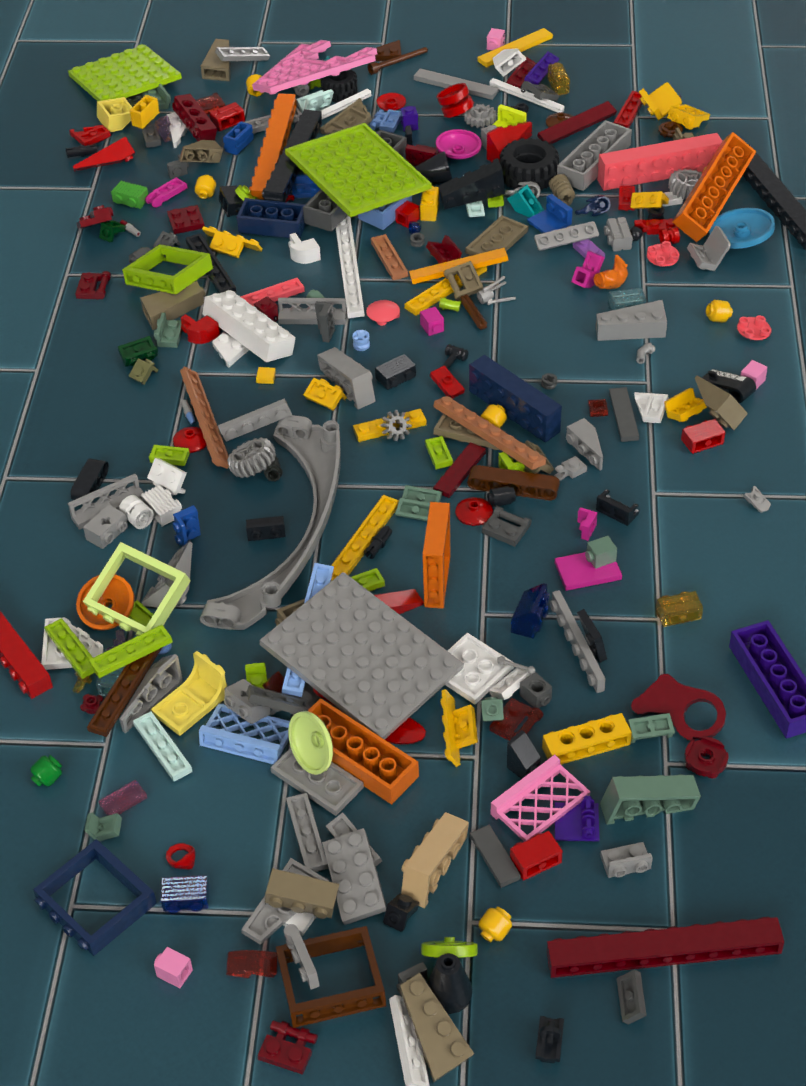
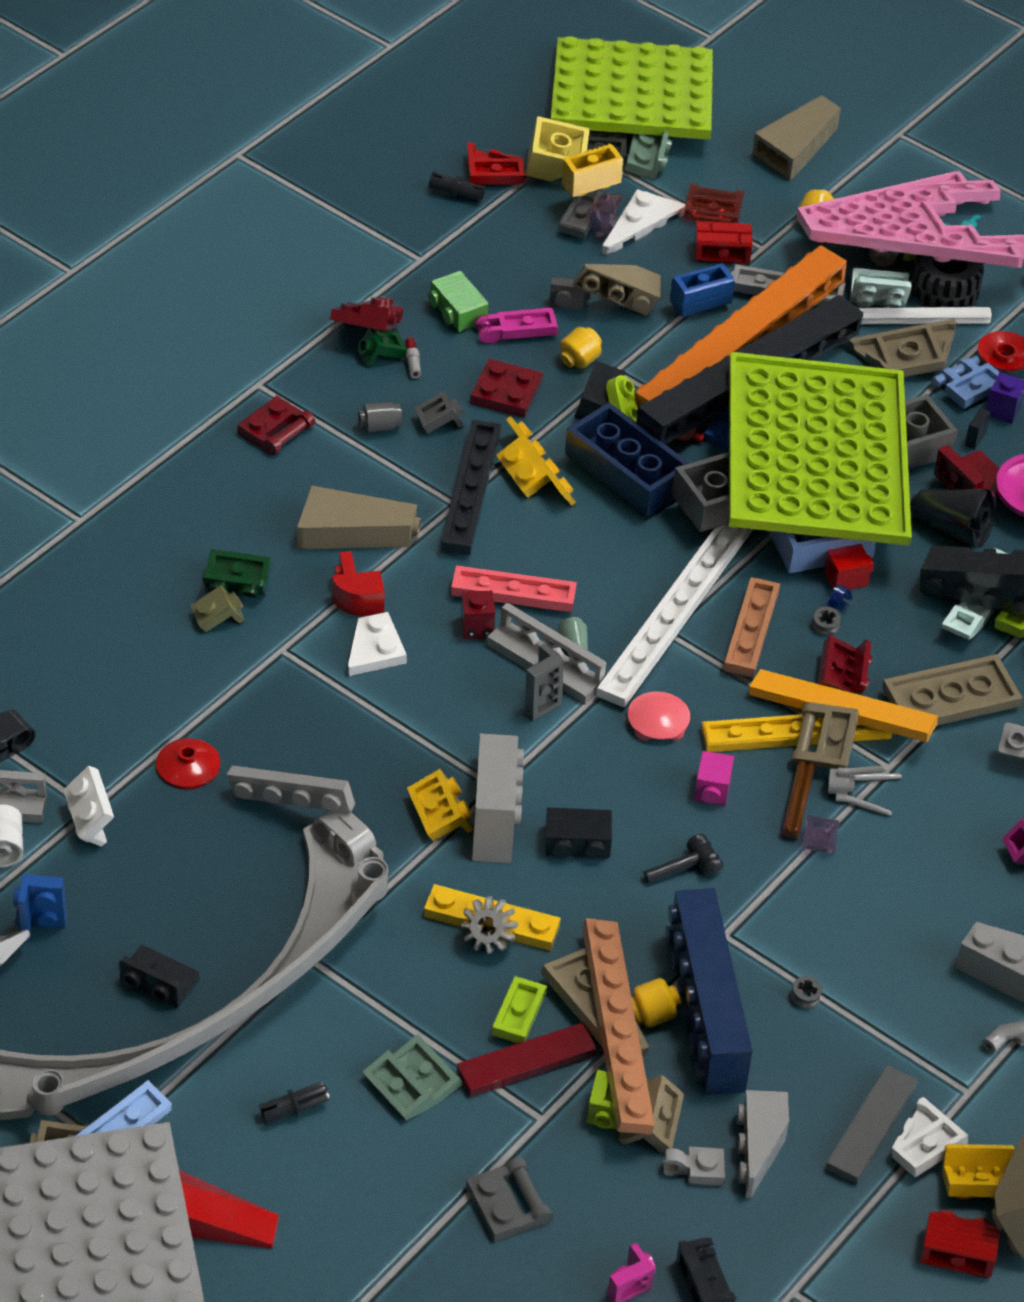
camera: 30 degrees right, 0 degrees up
(112, 154) = (500, 218): red wedge -> none
(138, 272) = (341, 437): lime window -> none
(162, 504) = (47, 844): white brick -> none
(168, 332) = (308, 565): sand green bracket -> none
(170, 454) = (130, 771): lime plate -> none
(188, 412) = (223, 715): piece -> none
(194, 117) = (665, 220): dark red brick -> none
(205, 417) = (233, 740): nougat plate -> none
(242, 53) = (839, 144): light grey plate -> none
(249, 326) = (426, 625): white brick -> none
(251, 457) = (231, 848): light grey gear -> none
(266, 375) = (386, 721): yellow tile -> none
(273, 471) = (251, 887): pearl dark grey cone -> none
(305, 251) = (630, 543): white brick -> none
(361, 340) = (577, 746): light blue wheel -> none
(362, 538) = (246, 1094): yellow tile -> none
(370, 579) = (211, 1156): lime plate -> none
(429, 204) = (897, 569): yellow brick -> none
(436, 555) = (299, 1239): orange window -> none
(447, 382) = (641, 898): red plate -> none
(449, 304) = (770, 764): lime pin -> none
(473, 511) = (484, 1153): red dish -> none
(496, 319) = (820, 834): none -> clear purple plate
(501, 496) = (543, 1144): black brick -> none
(524, 483) = (584, 1134): reddish brown beam -> none
(597, 408) = (841, 1087): clear red tile -> none

